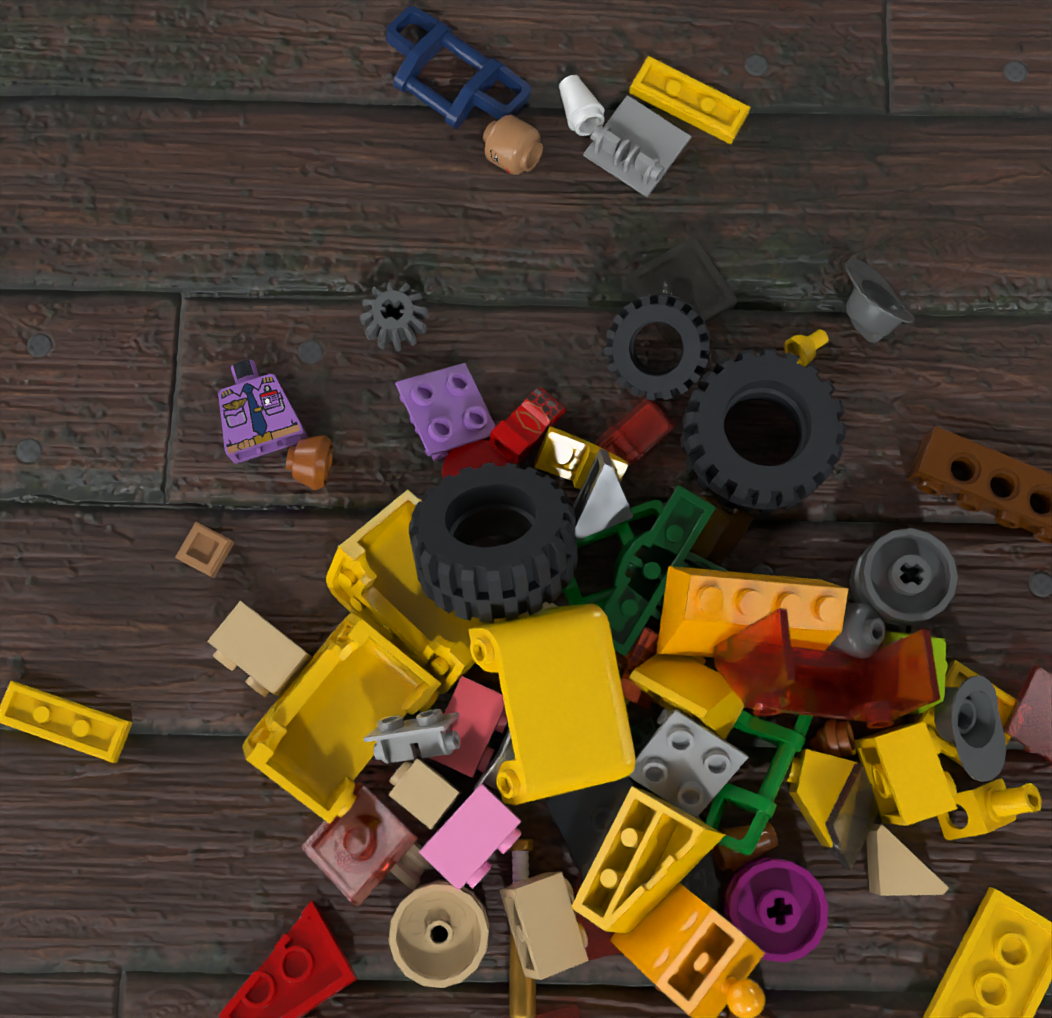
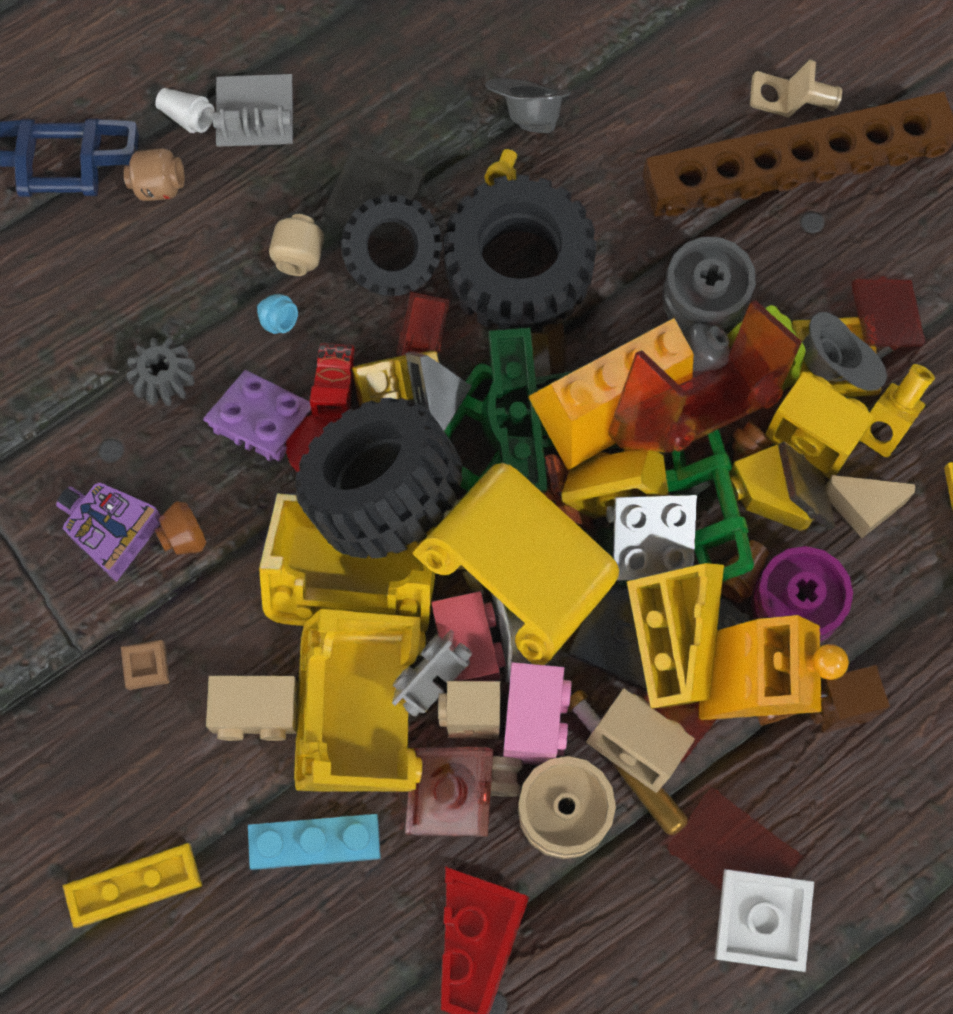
camera: 35 degrees left, 5 degrees down
(226, 797) = (314, 842): none -> medium azure plate
(524, 335) = (277, 313): none -> medium azure plate
(583, 288) = (296, 245): none -> tan head
(689, 100) = (268, 48): yellow tile -> none

